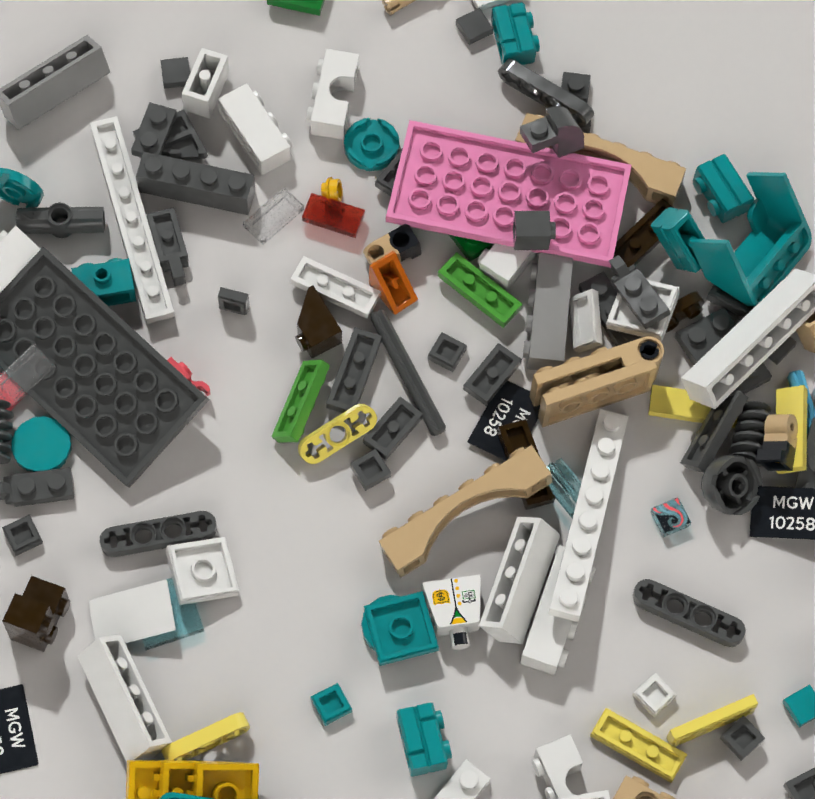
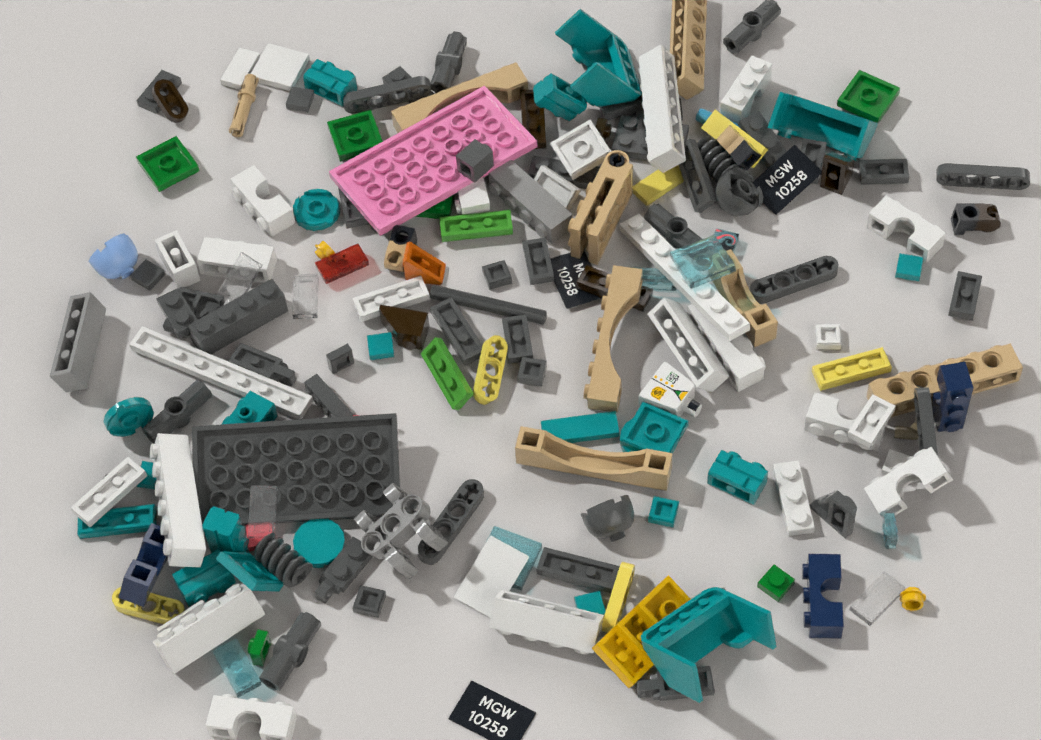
camera: 40 degrees left, 10 degrees down
(34, 615) = (437, 629): dark brown brick -> none
(91, 495) = (410, 522): none -> light grey piece
(162, 34) = (116, 258): none -> light blue cylinder
(179, 721) = (590, 602): none -> teal tile
(185, 327) = (326, 398): none -> dark grey piece
(202, 570) = (503, 514): white tile -> none
(202, 679) = (577, 570): none -> dark grey plate
(234, 148) = (240, 277): none -> clear tile
(275, 665) = (609, 518): none -> dark grey cylinder
(280, 321) = (380, 346): none -> teal tile
(330, 614) = (639, 468): none -> tan arch
(351, 560) = (583, 427): none -> teal tile
(478, 105) = (354, 134): none -> green plate
(554, 130) = (425, 100): dark grey brick -> none
(612, 518) = (702, 261): none -> clear light blue tile
(616, 585) = (736, 291): none -> tan arch
(634, 112) = (448, 62): none -> dark grey piece
(638, 293) = (571, 142): dark grey hinge -> none
(638, 450) = (671, 227): none -> dark grey piece
(712, 721) = (875, 317): light yellow tile -> none
(722, 188) = (546, 57): teal brick -> none
(742, 738) = (900, 311): dark grey plate -> none

